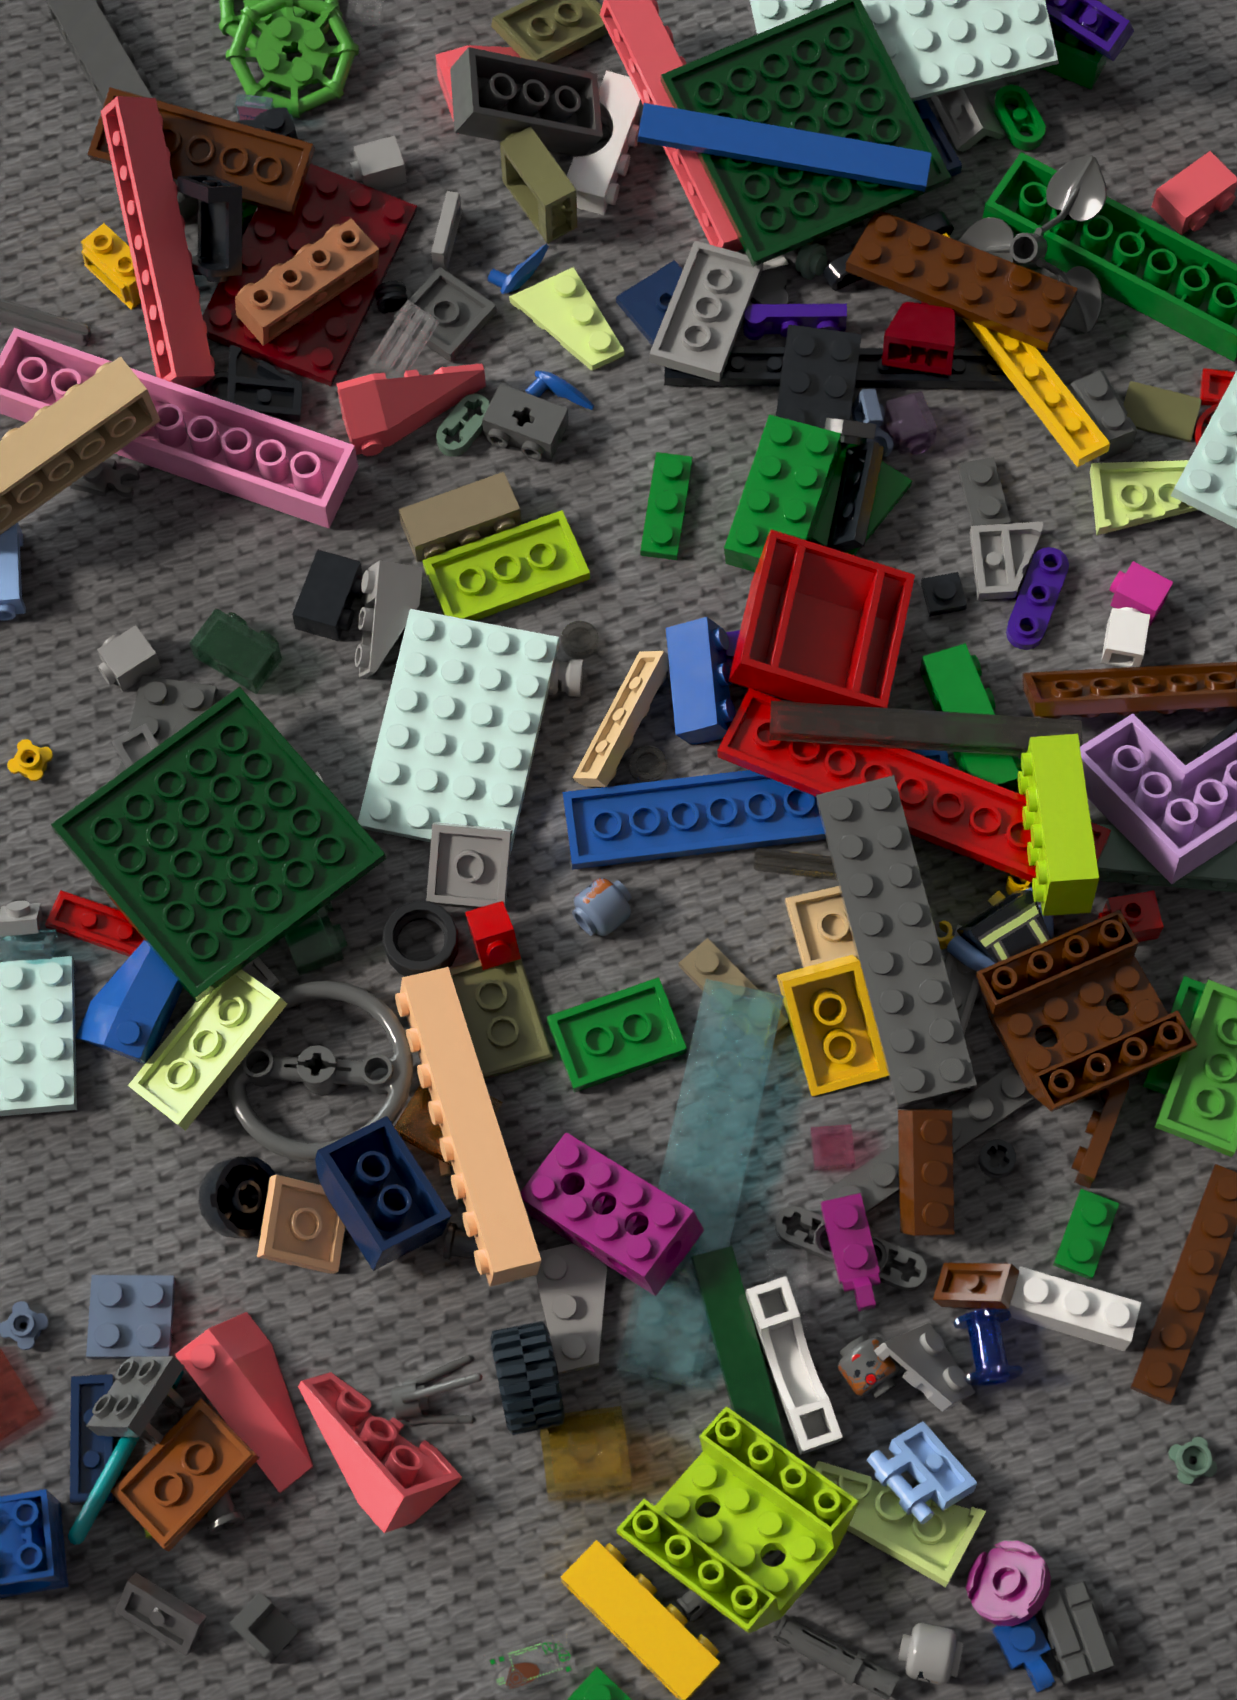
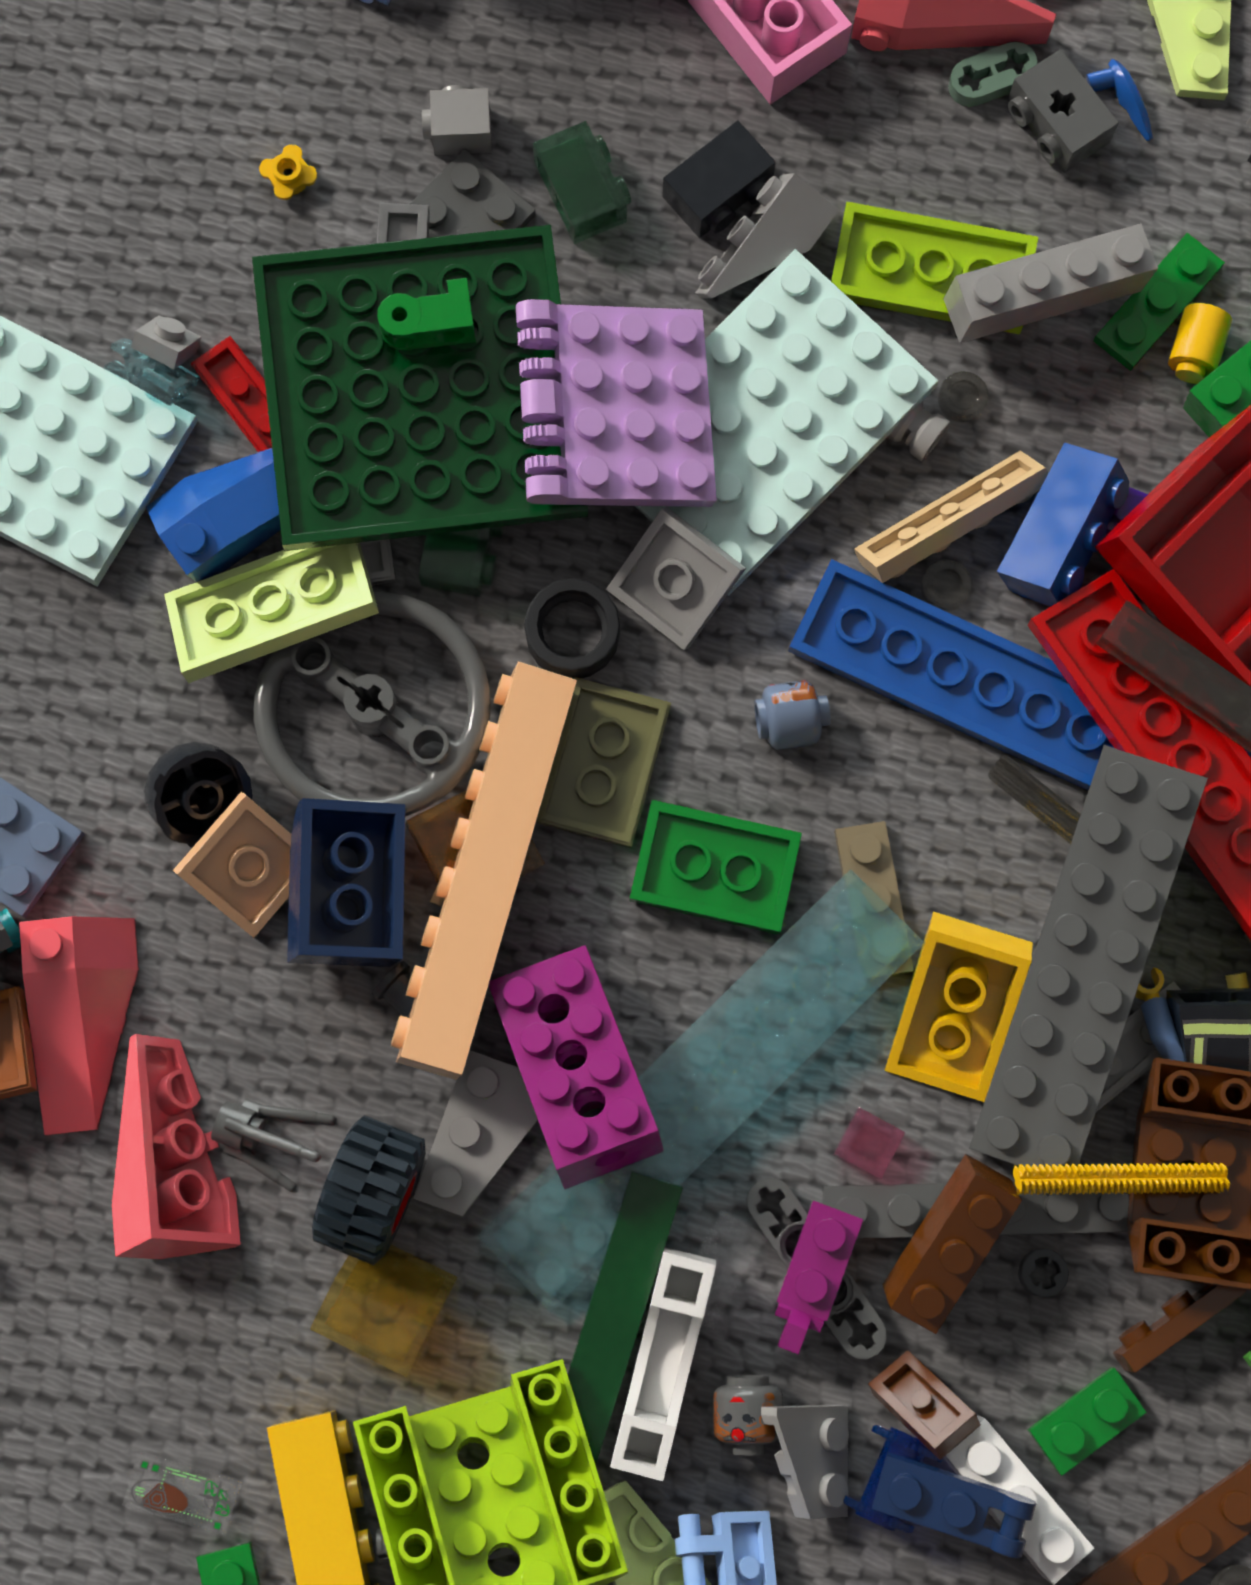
camera: 30 degrees right, 10 degrees up
(201, 793) = (428, 320): none -> green leg
(361, 771) = (624, 403): none -> lavender hinge
(460, 516) = (921, 176): dark tan brick -> none
(493, 935) = (651, 673): red brick -> none
(590, 534) = (1050, 283): none -> light grey brick
(709, 515) = (1199, 342): none -> yellow brick
(820, 926) = (1018, 887): tan tile -> none
(1004, 1059) = (1121, 1178): none -> yellow axle
(1033, 1331) = (952, 1504): none -> dark blue plate

